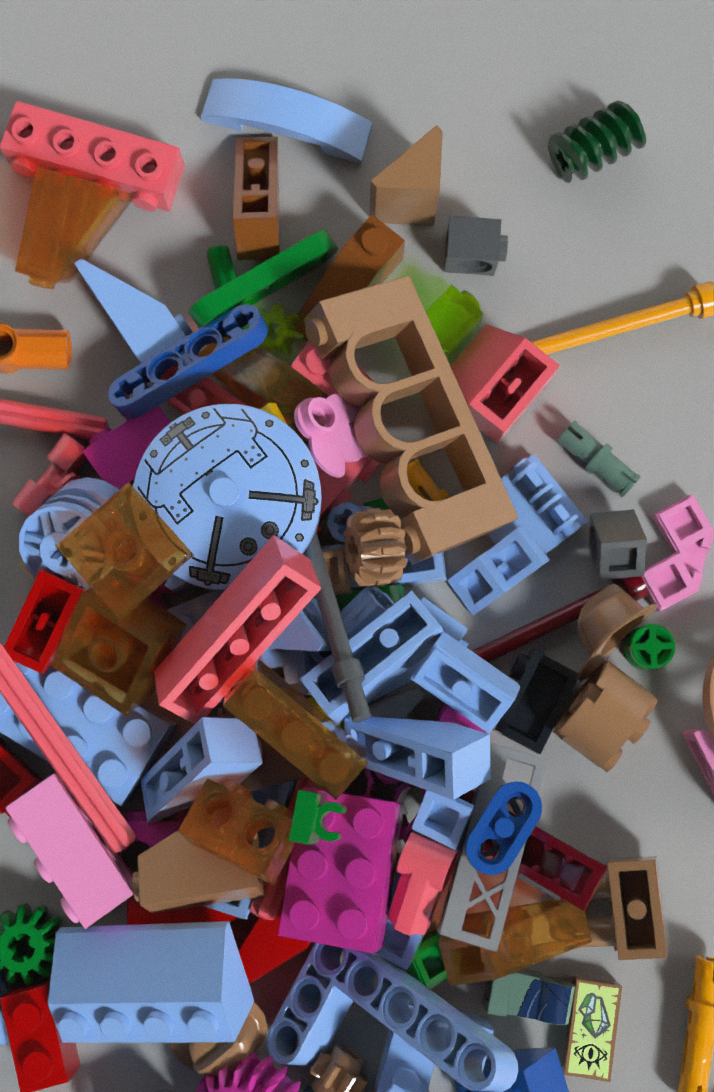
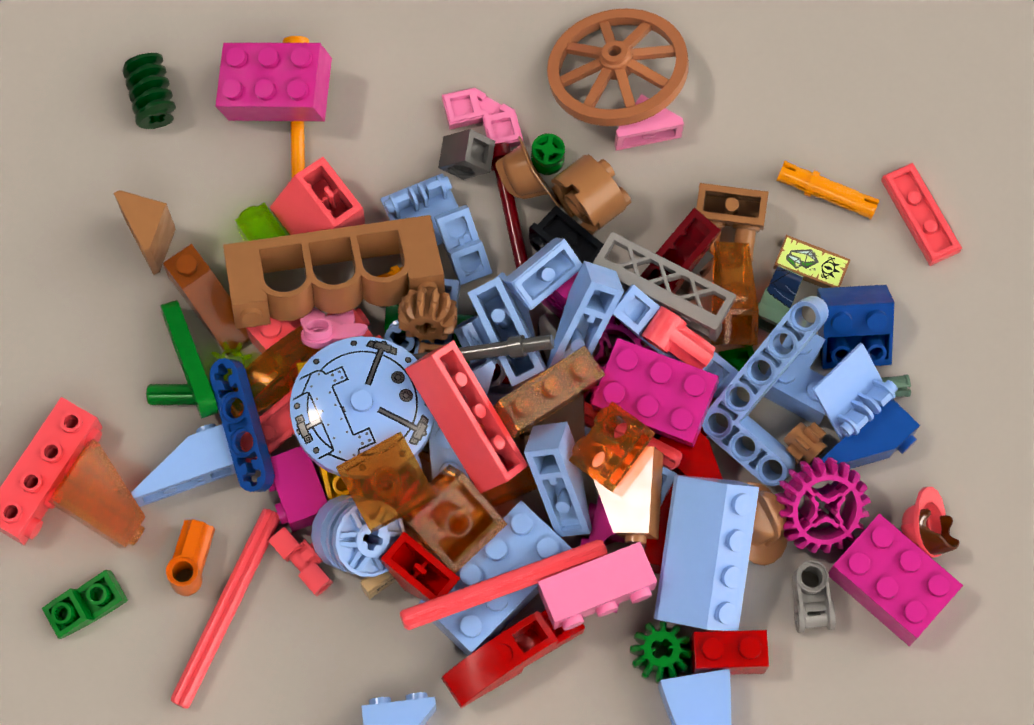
camera: 75 degrees left, 10 degrees down
(256, 198) = (117, 351): dark orange slope -> none
(288, 113) = (50, 317): light blue slope -> none
(309, 818) = (610, 391): green tile -> none
(474, 245) = (205, 200): dark grey brick -> none
(506, 830) = (652, 269): blue plate -> none
(598, 459) = (396, 153): sand green pin -> none
(647, 282) = (273, 82): none -> dark pink brick

